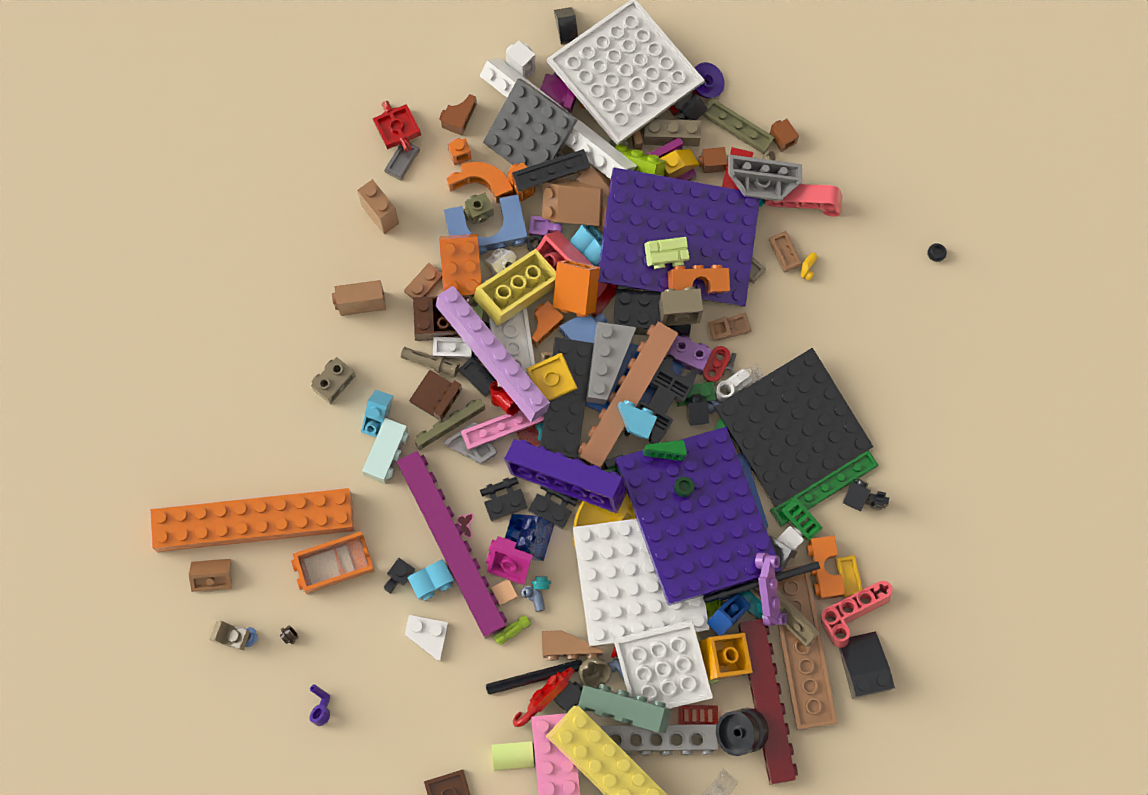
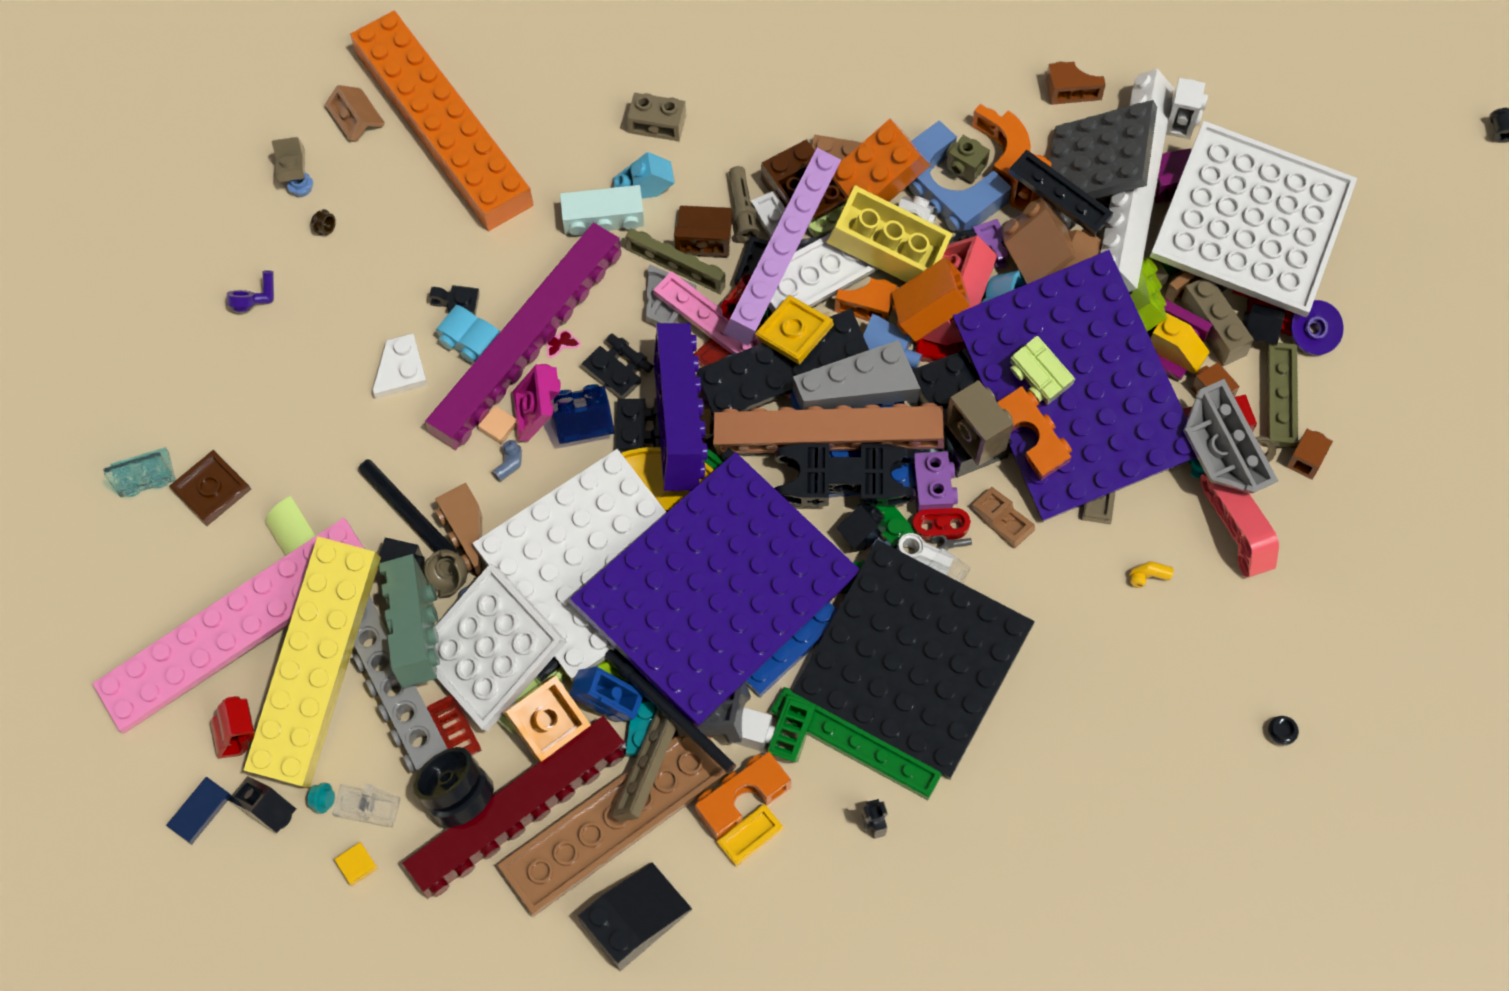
camera: 65 degrees right, 10 degrees down
(332, 562) = (434, 223): door -> none
(359, 298) = (772, 89): medium nougat brick -> none
(378, 206) = (895, 51): medium nougat brick -> none
(396, 126) = (1011, 28): red plate -> none
(401, 161) = (975, 57): flat silver tile -> none
(458, 148) = (1031, 100): orange brick -> none
(512, 630) = (454, 456): lime axle -> none
(541, 582) = (531, 457): teal plate -> none
(544, 696) = (381, 526): red plate -> none
(566, 24) = (1277, 134): black slope -> none
(635, 420) = (795, 447): medium azure slope -> none
(667, 450) = (778, 501): green slope -> none
(683, 487) = (741, 546): dark green tile -> none
(768, 589) = (656, 716): medium lavender plate -> none
(785, 251) = (1150, 533): medium nougat plate -> none
(857, 494) = (867, 784): black brick -> none
(859, 609) = (704, 866): coral beam -> none

